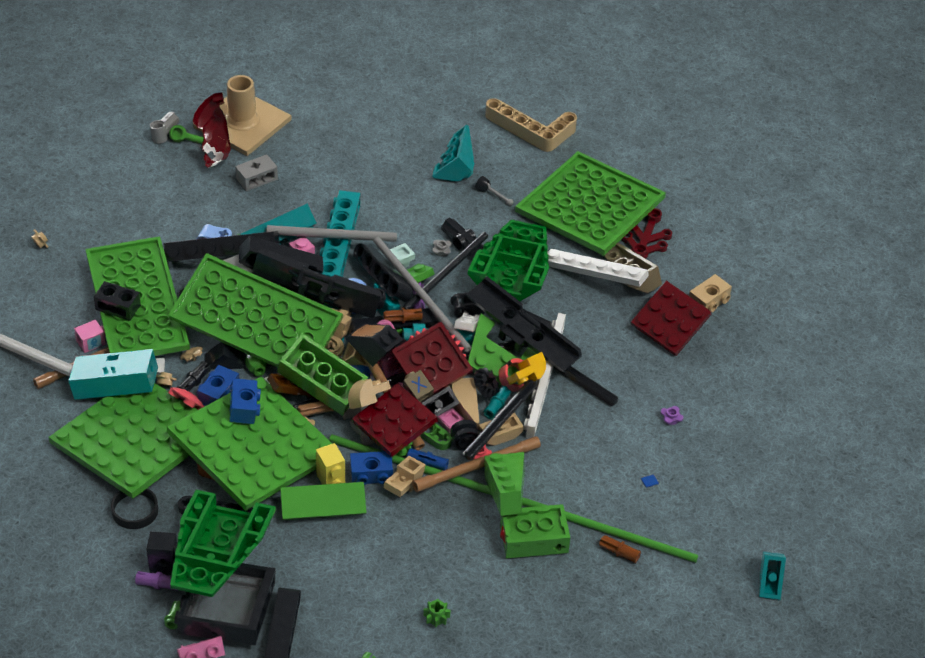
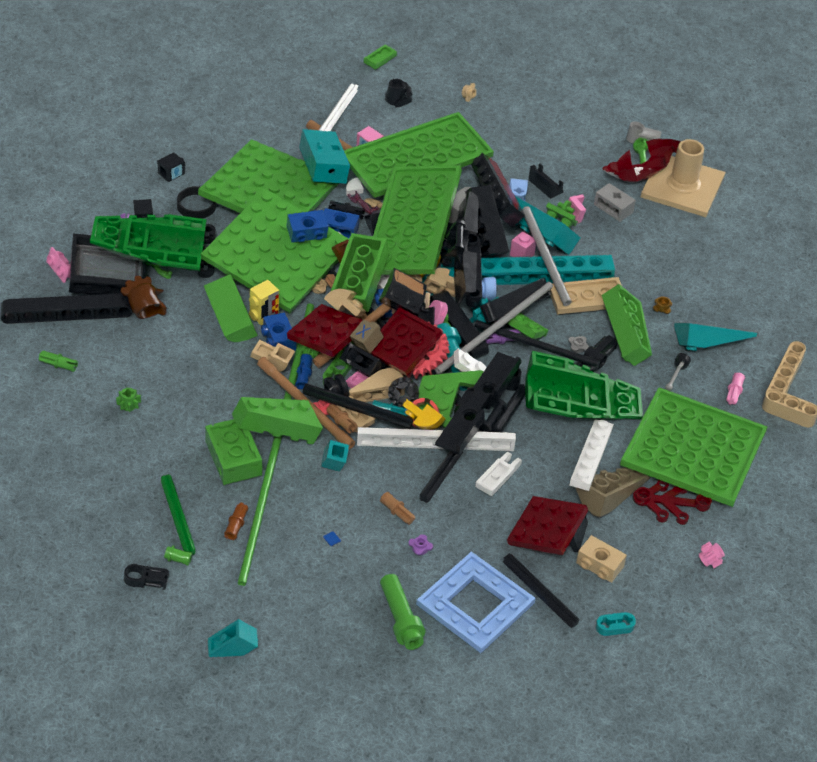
camera: 75 degrees right, 0 degrees up
(16, 298) = (396, 93): none -> black piece
(67, 519) = (171, 167): none -> black brick
(117, 300) = (400, 137): black brick -> none
(165, 379) = (338, 192): tan plate -> none
(187, 397) = (315, 201): coral dish -> none
(189, 362) = (357, 199): none -> clear pink piece
(206, 216) = (544, 183): none -> black hinge
(256, 202) = (577, 205): none -> bright pink bracket
(258, 218) = (562, 213): none -> bright green hips
(291, 572) = (143, 297): none -> reddish brown piece
(380, 215) = (584, 294): none -> tan plate
(403, 254) = (549, 314): light aqua tile -> none
(403, 315) = (461, 319): dark orange axle -> none
(406, 177) = (662, 305): none -> pearl gold plate
(438, 203) = (628, 324): none -> bright green wedge
(508, 437) = (341, 418): none -> medium nougat axle
(524, 160) = (735, 388): none -> bright pink axle
(557, 452) = (335, 455): none -> teal brick
(596, 341) = (498, 474): none -> white hinge
(601, 596) = (177, 514): none -> green axle
(624, 422) = (397, 508): none -> medium nougat axle
(656, 606) = (178, 555): none -> bright green pin
(681, 631) = (150, 576): none -> black piece
(716, 224) = (711, 554): none -> bright pink gear
(734, 345) = (541, 590): none -> black axle
(774, 440) = (408, 627): none -> bright green piece
(778, 392) = (478, 635): none -> light blue plate
(782, 305) = (615, 624): none -> teal beam

